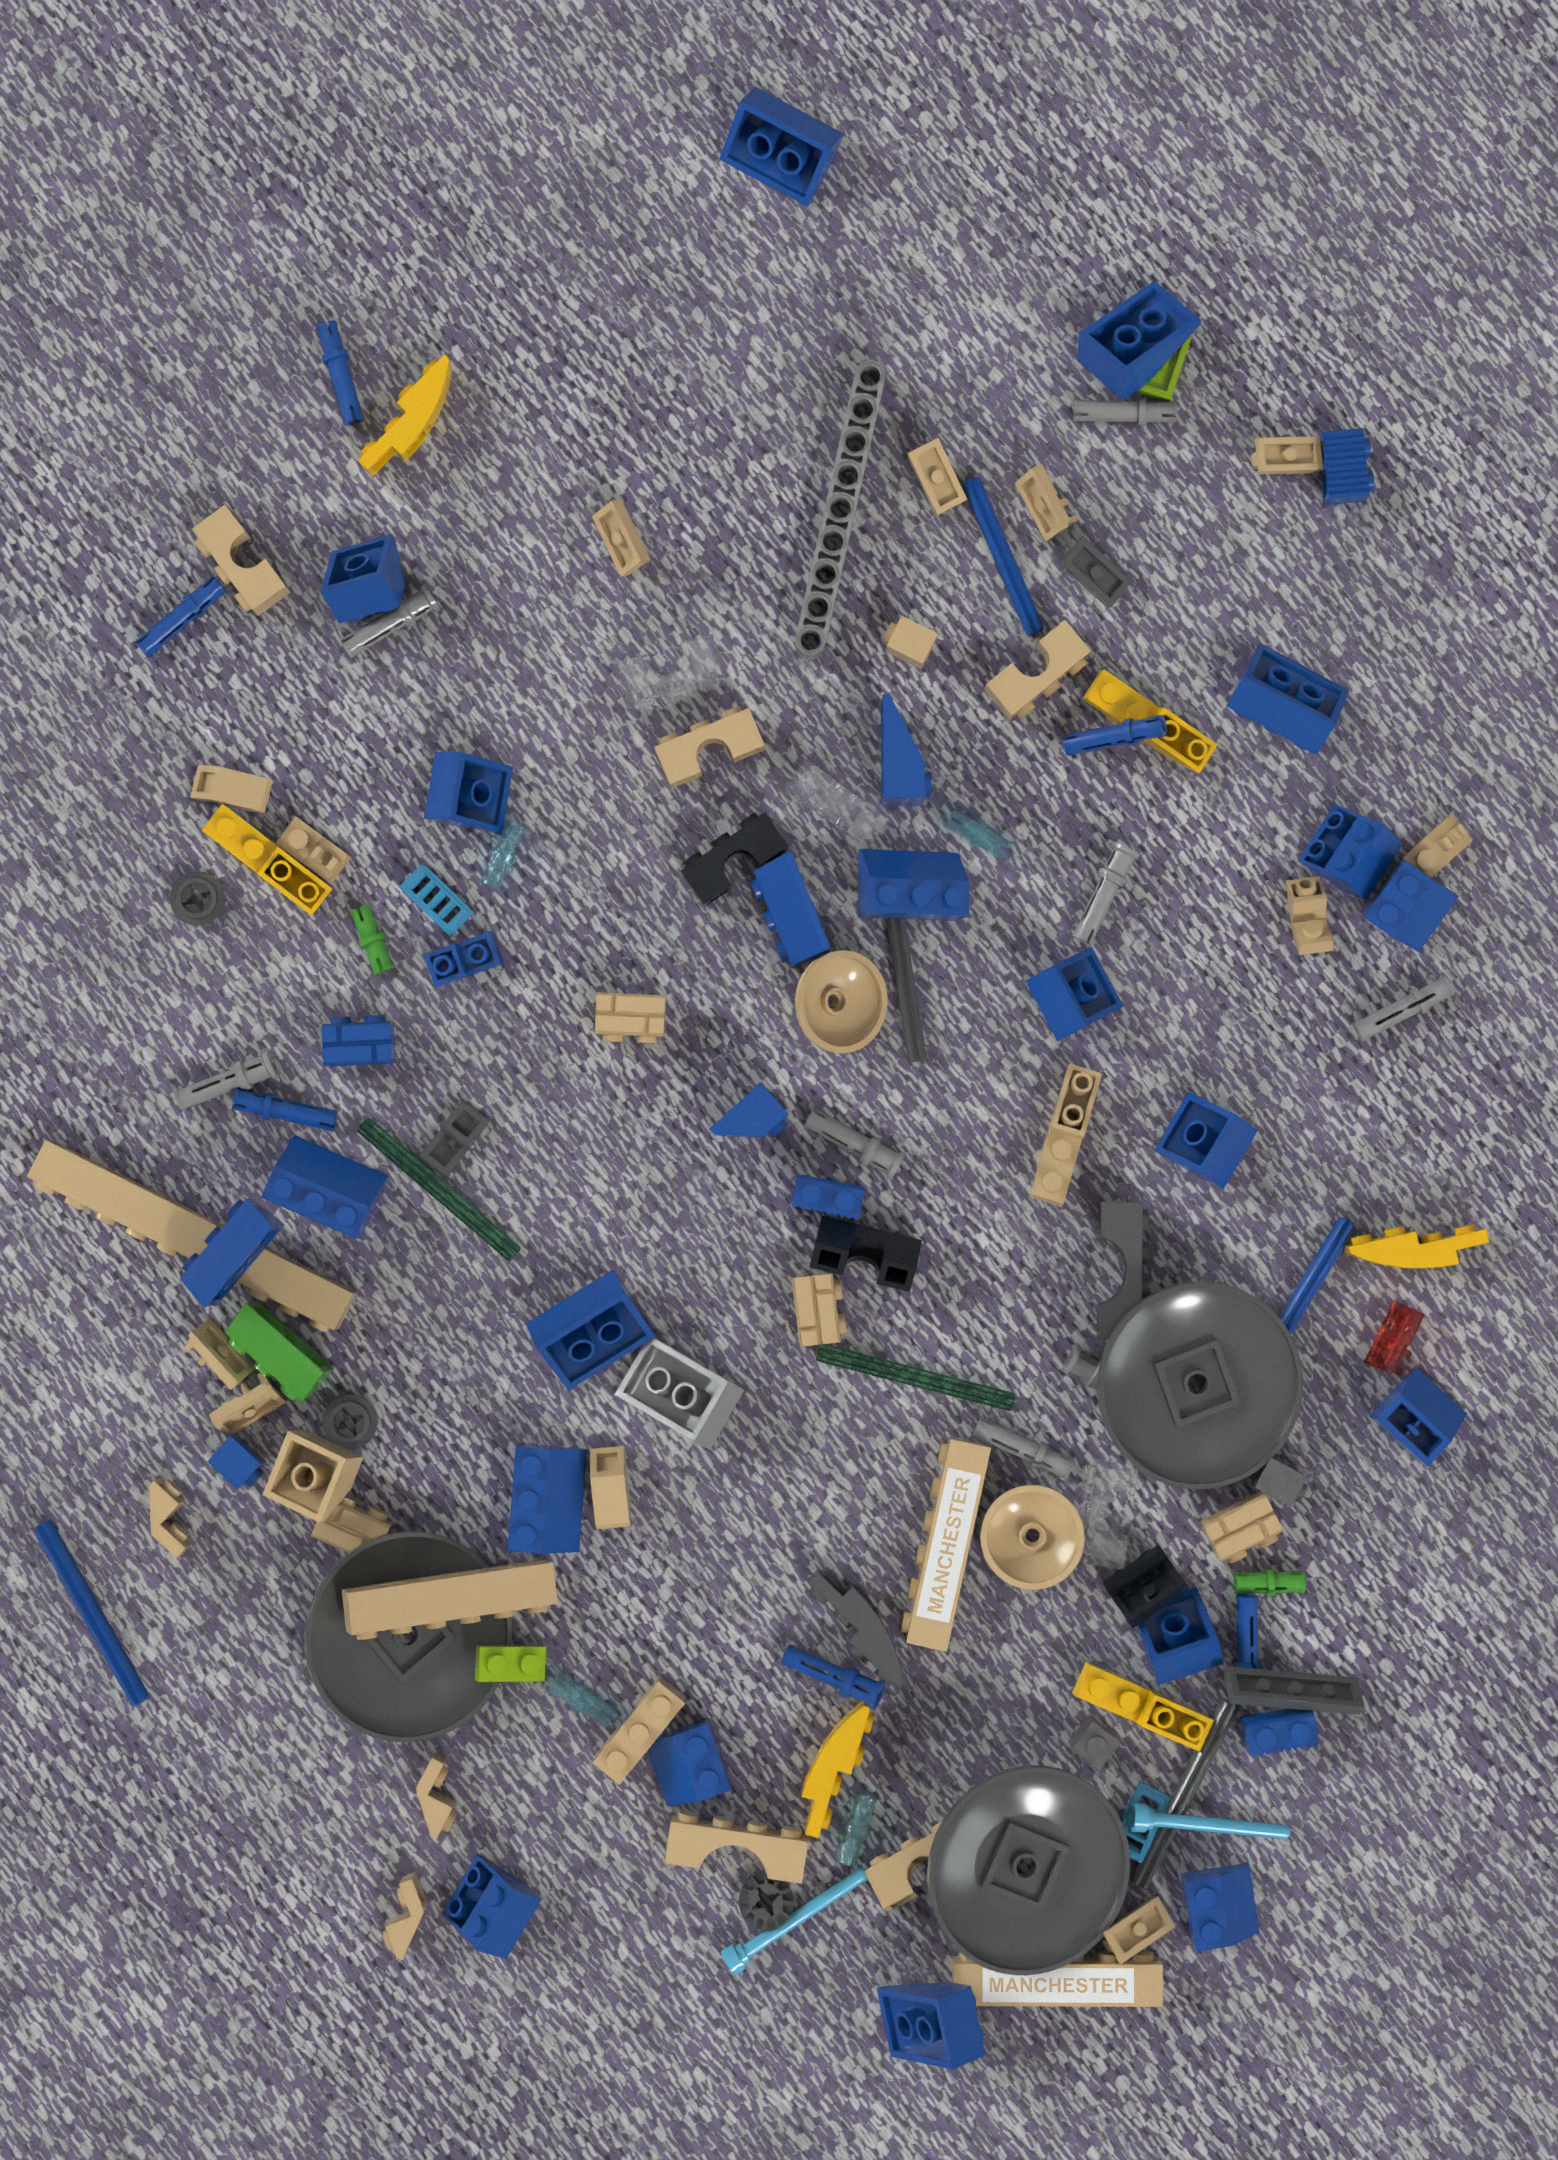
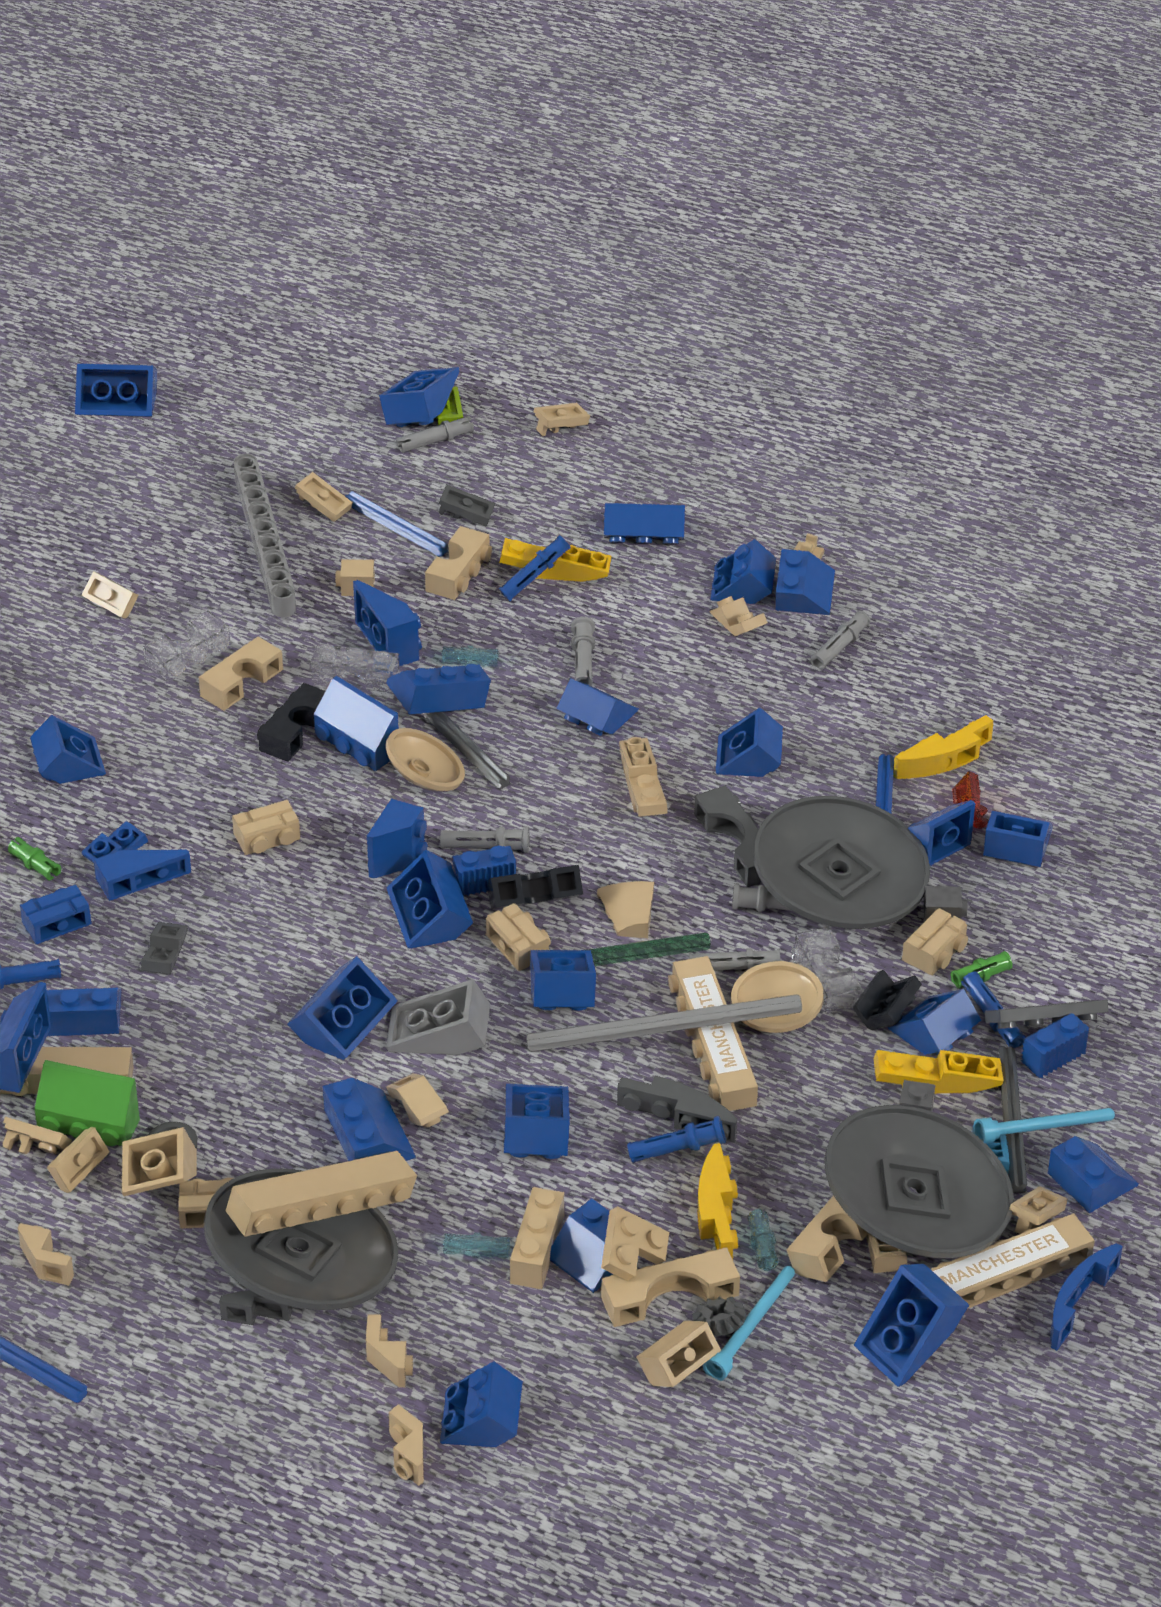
camera: 30 degrees left, 45 degrees down
(238, 1462) = (87, 1196): blue brick -> none
(415, 878) = (58, 810): dark azure slope -> none
(439, 1189) = (169, 979): clear green axle -> none
(456, 1015) = (139, 869): none -> blue slope
(503, 855) = (114, 780): clear light blue pin -> none
(510, 1663) = (399, 1238): lime plate -> none
(699, 1939) = (678, 1353): none -> tan brick
(713, 1801) = (627, 1239): none -> tan plate
(716, 1568) = (536, 1120): none -> blue slope
(749, 1214) = (429, 902): none -> blue slope
(832, 1395) = (562, 979): none -> blue slope
(898, 1523) = (664, 1023): none -> light grey axle
(954, 1317) = (628, 907): none -> tan slope
(1044, 503) = (408, 487): tan plate -> none
(1158, 2024) = (1096, 1268): none -> blue slope
(1336, 1375) = (946, 830): none -> blue slope
(1345, 466) = (605, 411): blue brick -> none

